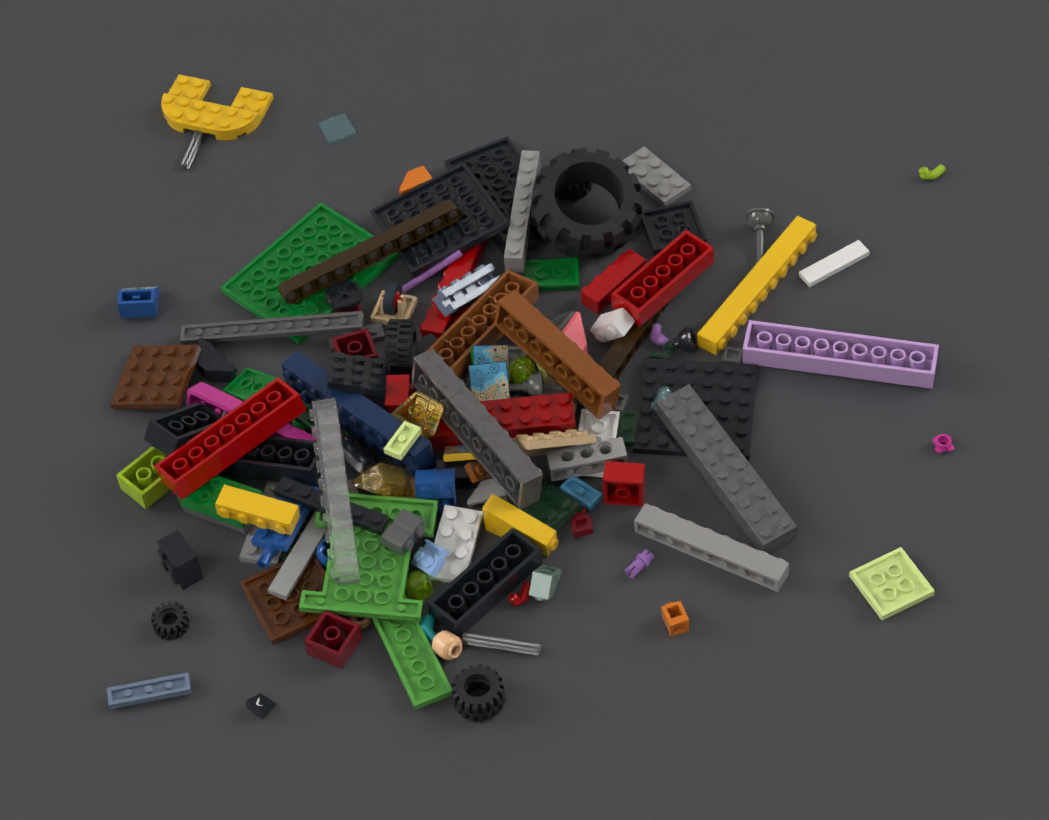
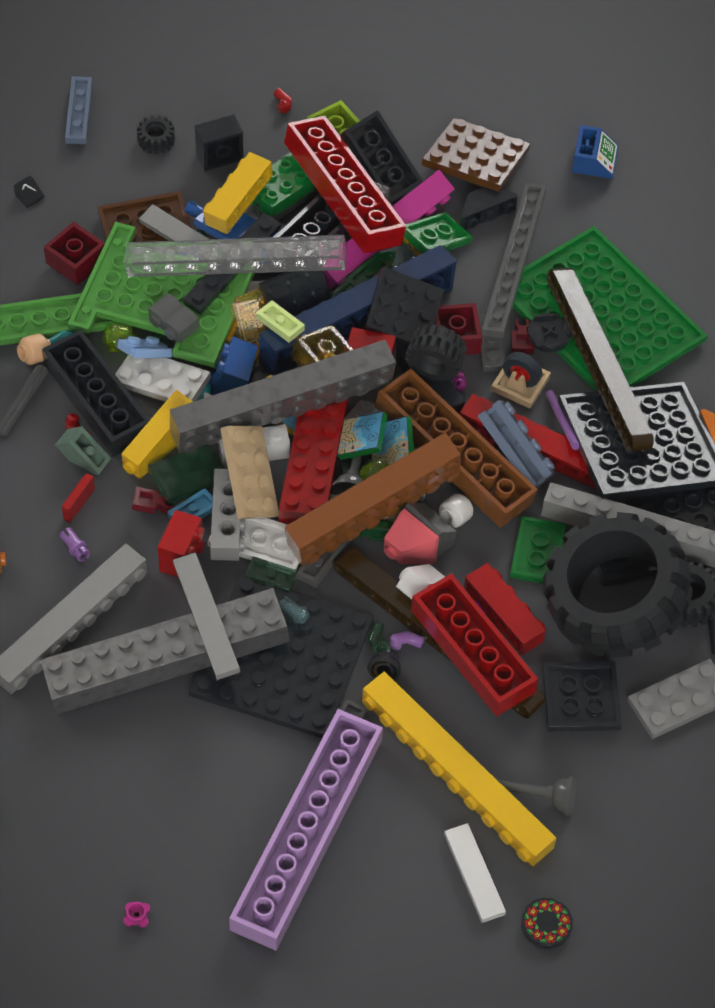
camera: 95 degrees right, 5 degrees up
(108, 532) = (285, 100): none -> red arm
(593, 571) = (78, 497): none -> red tile
(697, 434) = (206, 616): none -> light grey tile
(857, 219) = (547, 923): none -> tile

